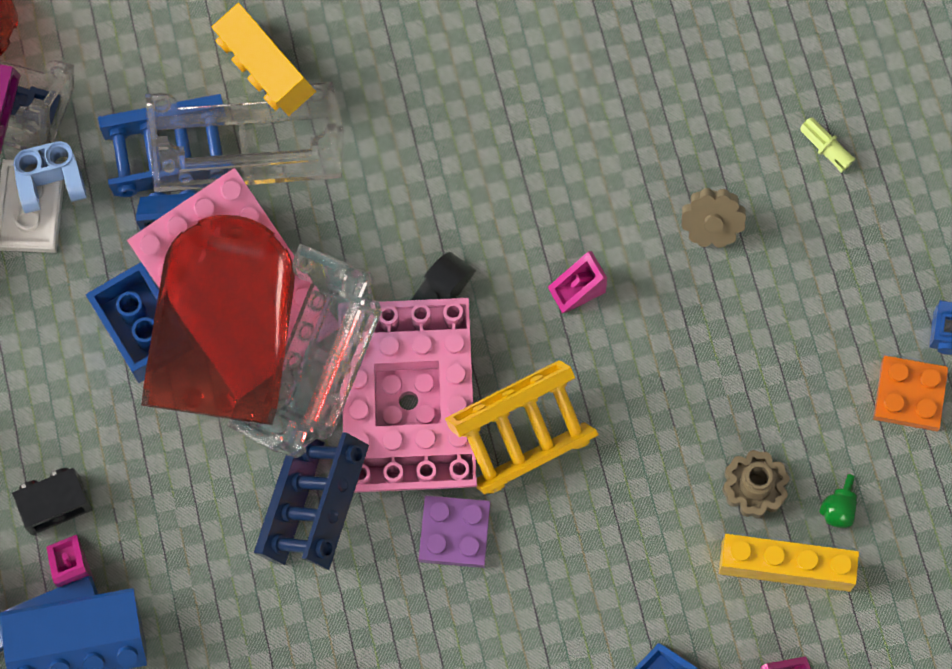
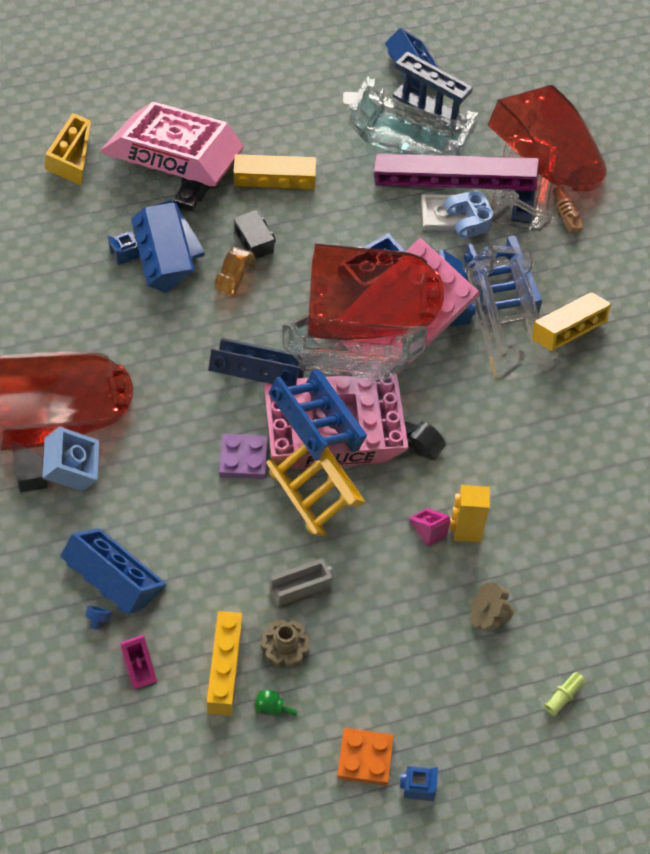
camera: 80 degrees right, 15 degrees down
(43, 42) = (567, 210): none -> medium nougat hinge
(68, 561) = (213, 245): dark pink slope -> none
(123, 531) = (234, 269): none -> clear orange animal
(418, 387) = (332, 406): none -> blue fence
(572, 225) = (470, 513): none -> yellow wedge
(668, 458) = (300, 582): none -> light grey window

